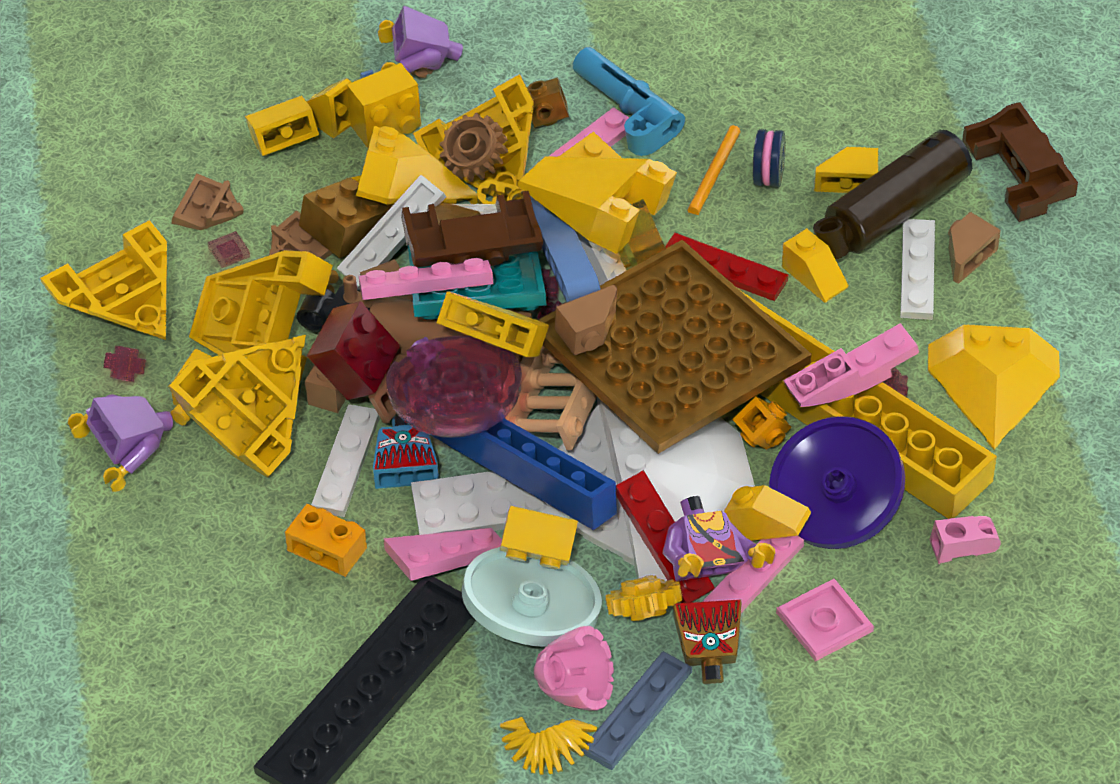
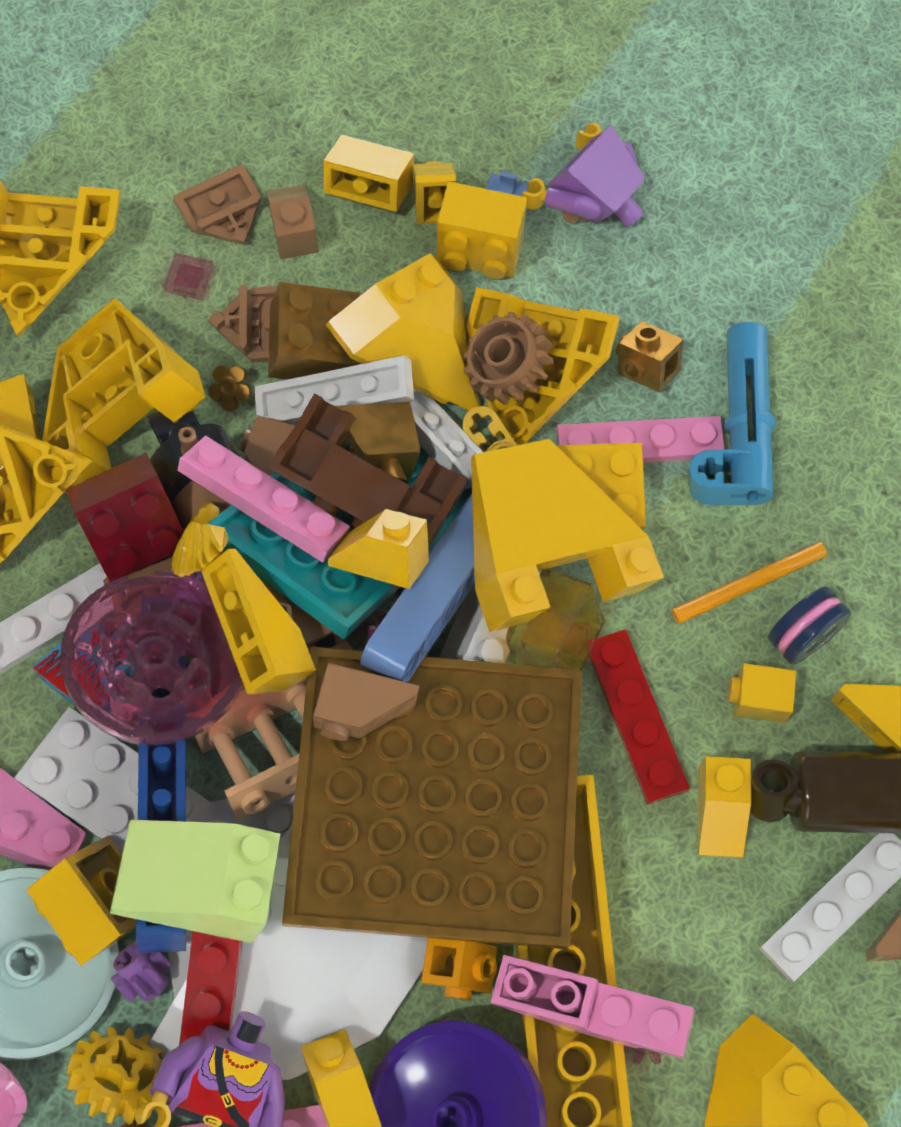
camera: 40 degrees right, 20 degrees up
(262, 179) = (293, 221): none -> medium nougat slope
(415, 320) = (199, 542): none -> yellow hair
(521, 246) = (385, 548): none -> yellow slope
(597, 448) = (197, 876): none -> yellowish green slope
(599, 555) = (140, 973): none -> medium lavender gear
(778, 206) = (763, 693): none -> yellow brick

